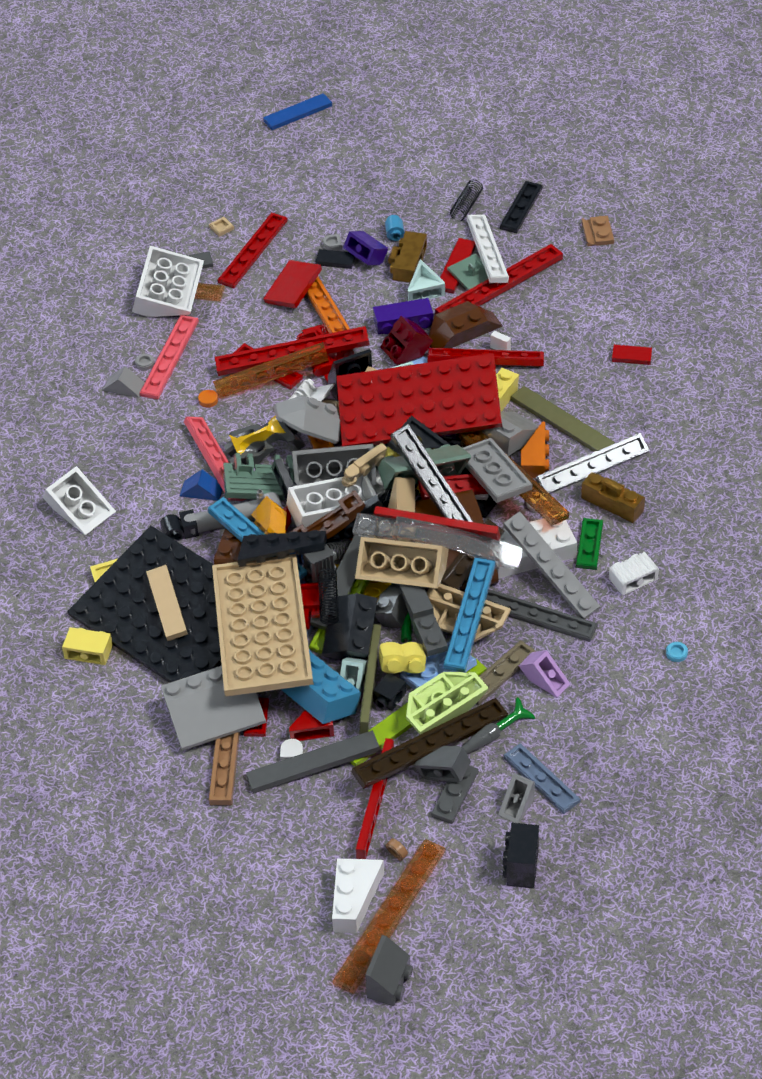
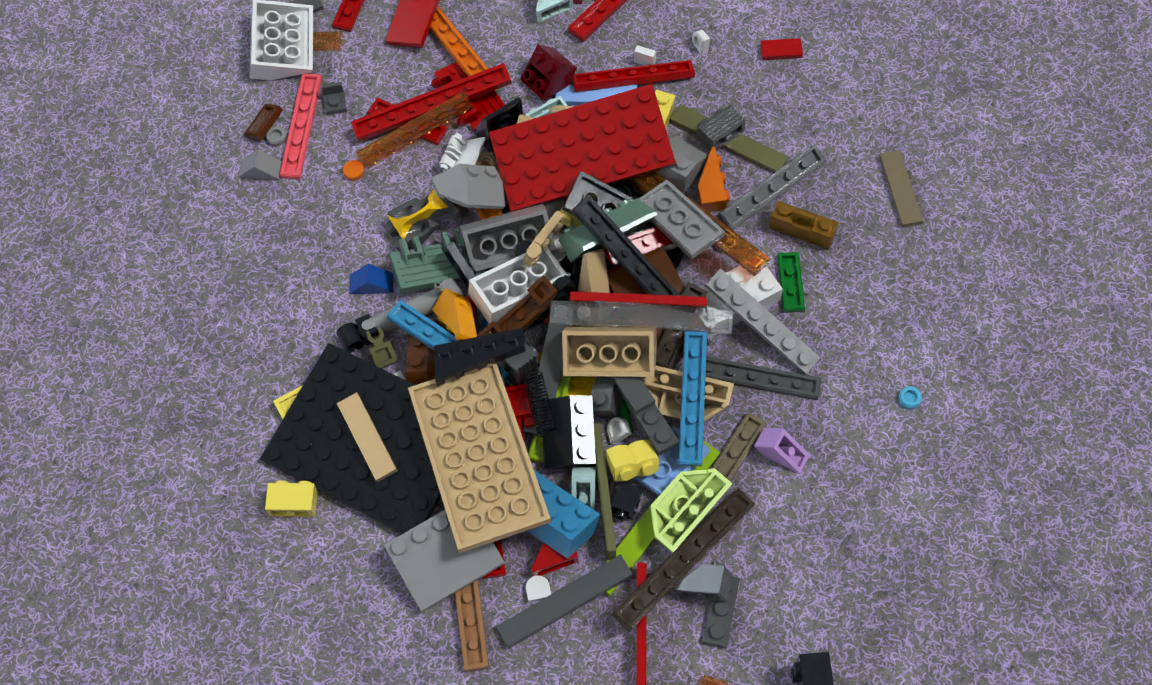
camera: 10 degrees left, 15 degrees up
(78, 501) = (244, 322): white slope -> none
(135, 348) = (263, 122): none -> reddish brown tile
(197, 542) = (381, 351): none -> olive plate
(205, 337) = (334, 98): none -> dark grey bracket
(209, 448) = (367, 231): coral tile -> none
(397, 634) = (618, 430): none -> white tile
(417, 311) = (548, 33): dark purple brick -> none
(461, 325) = (599, 42): reddish brown wedge -> none
(492, 731) = (743, 529): piece -> none
(517, 798) = (789, 610): light grey slope -> none
(544, 779) = (807, 576): sand blue tile -> none
(555, 407) = (721, 127): none -> dark grey brick
(557, 337) = (701, 41): none -> white tile
(633, 573) = (845, 311): white brick -> none
(714, 483) = (901, 188): none -> dark tan tile

